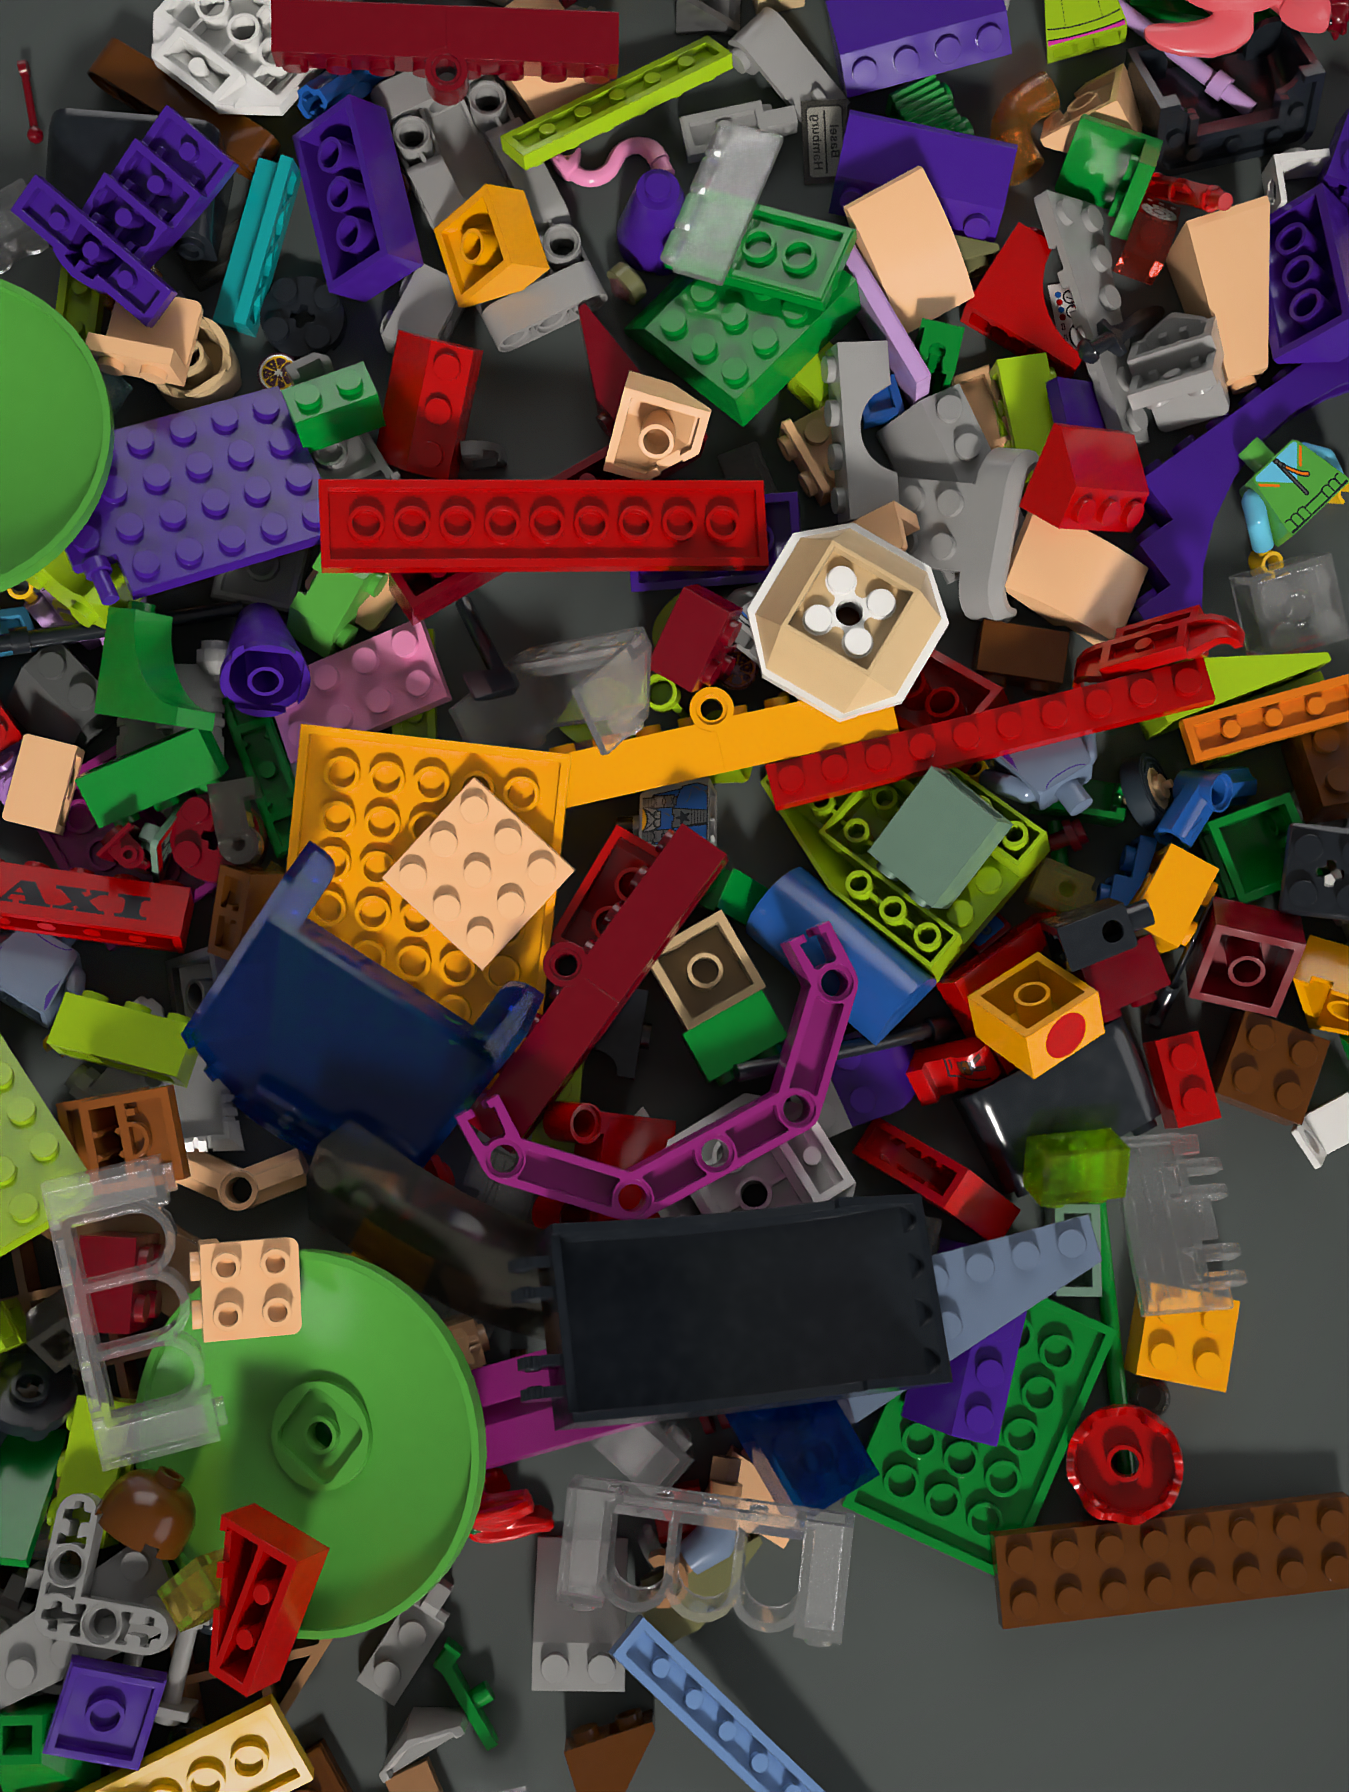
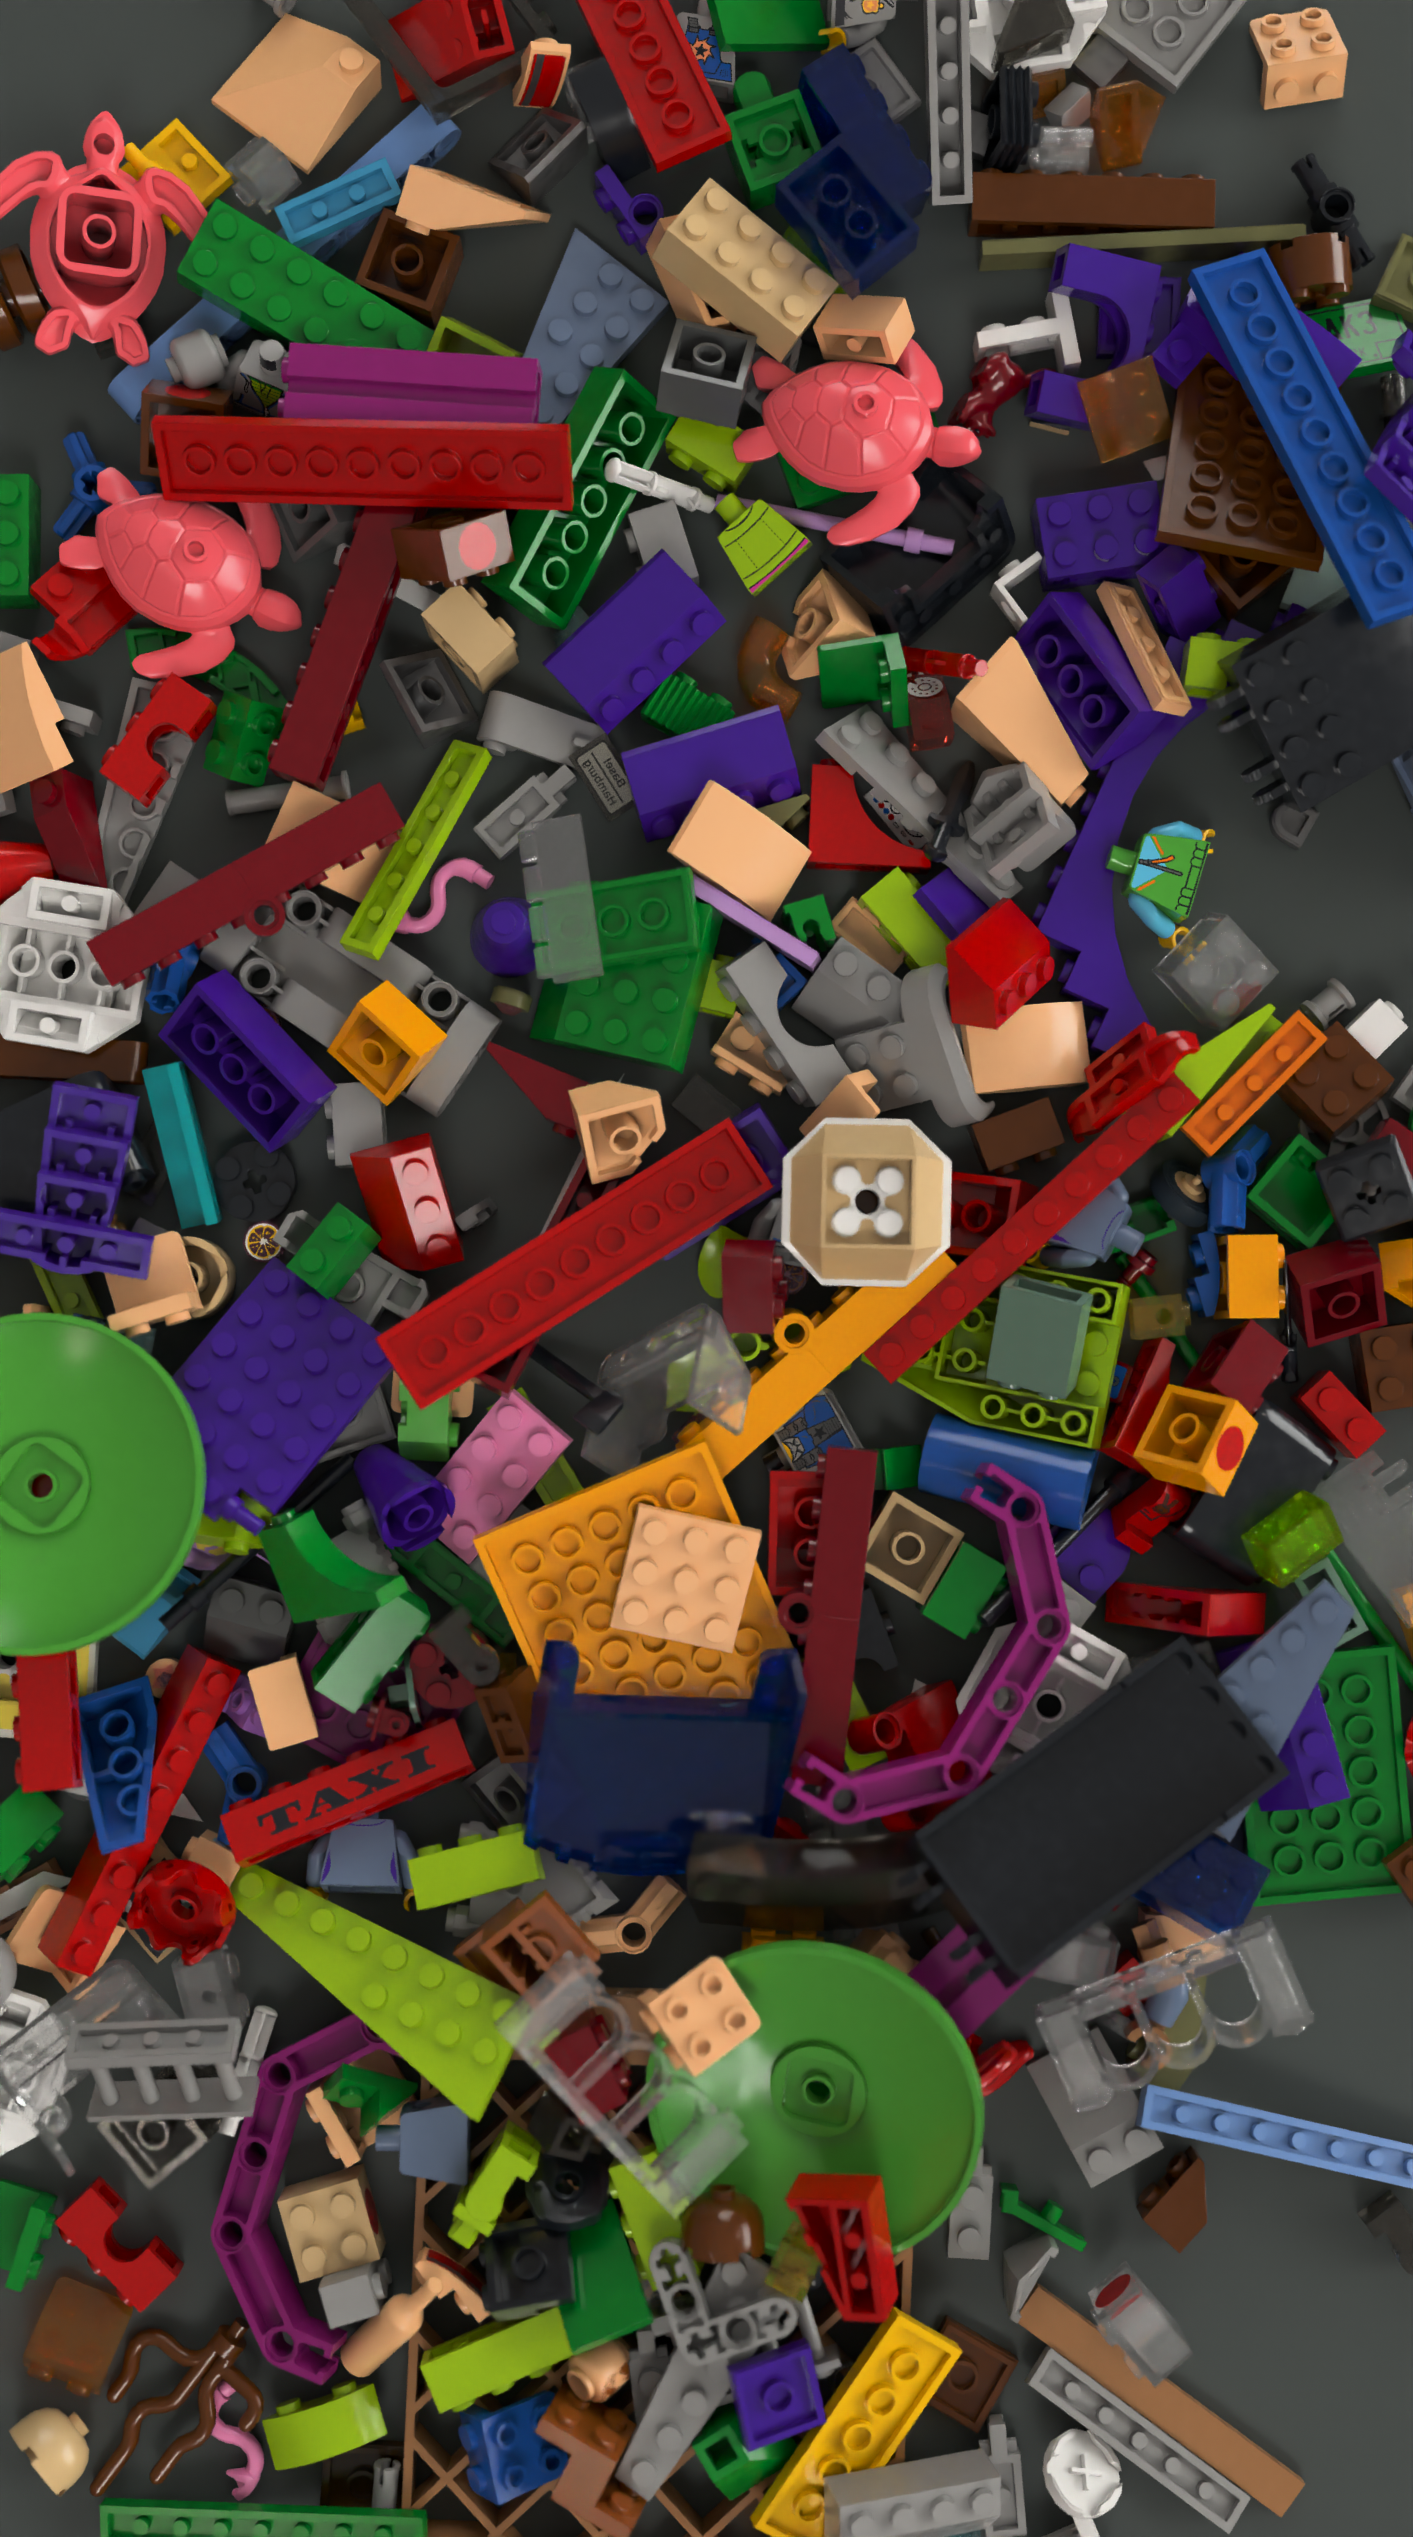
camera: 30 degrees left, 5 degrees up
(1077, 935) = (1206, 1345): black torso -> none

